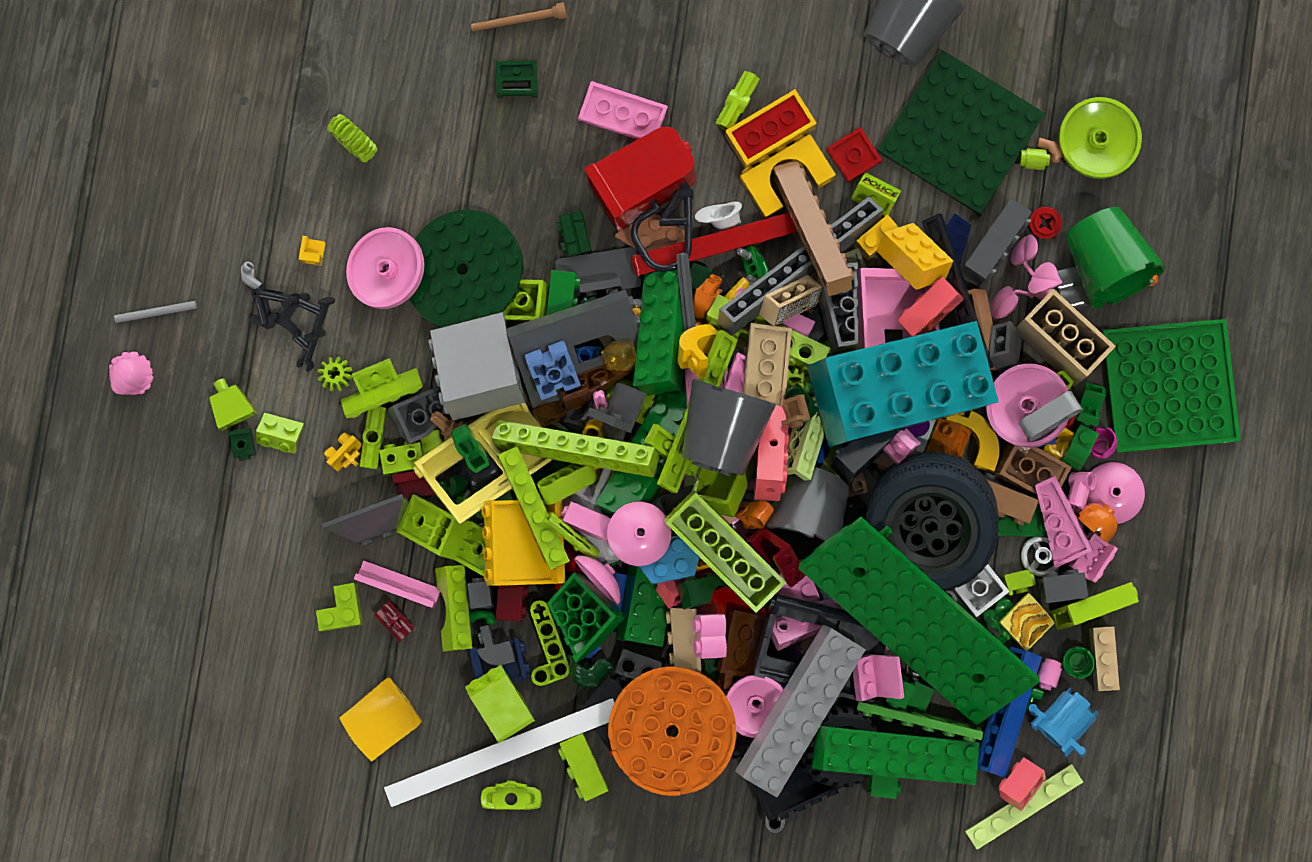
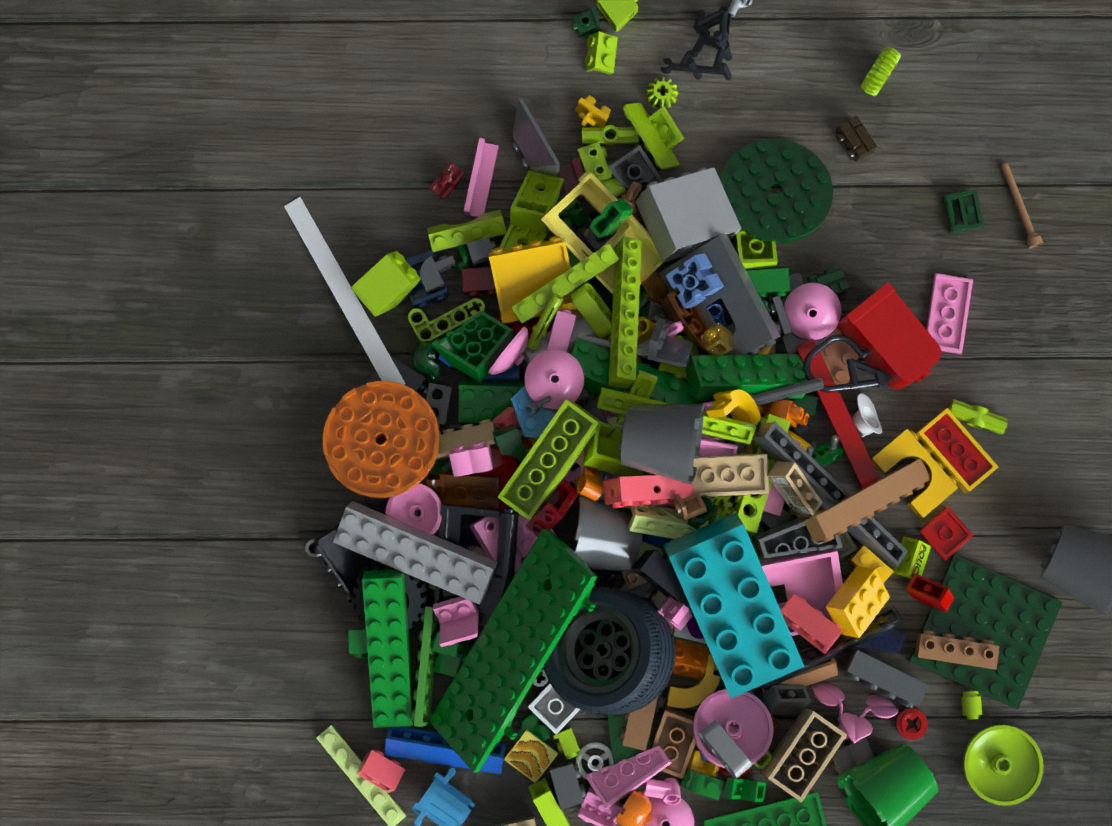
camera: 80 degrees right, 0 degrees up
(311, 251) = (771, 54): yellow panel -> none
(347, 610) = (451, 138): lime brick -> none
(380, 719) = (359, 183): yellow piece -> none
(385, 268) = (766, 120): bright pink dish -> none
(420, 177) = (856, 139): none -> dark brown brick
(527, 797) = (303, 295): lime piece -> none
(583, 767) = (341, 368): lime brick -> none
(587, 256) = (812, 297): none -> bright pink dish
(665, 557) = (535, 406): none -> dark grey hand
(914, 180) = (930, 592): none -> red brick
(978, 164) = (957, 651): none -> medium nougat brick
(1036, 693) = (466, 773): green hand -> none
(1049, 674) = (485, 783): bright pink brick -> none
(1052, 147) = (985, 721): nougat arm -> none
(1078, 662) = (500, 810): green hair -> none
(1105, 443) = (708, 807): dark pink hair -> none

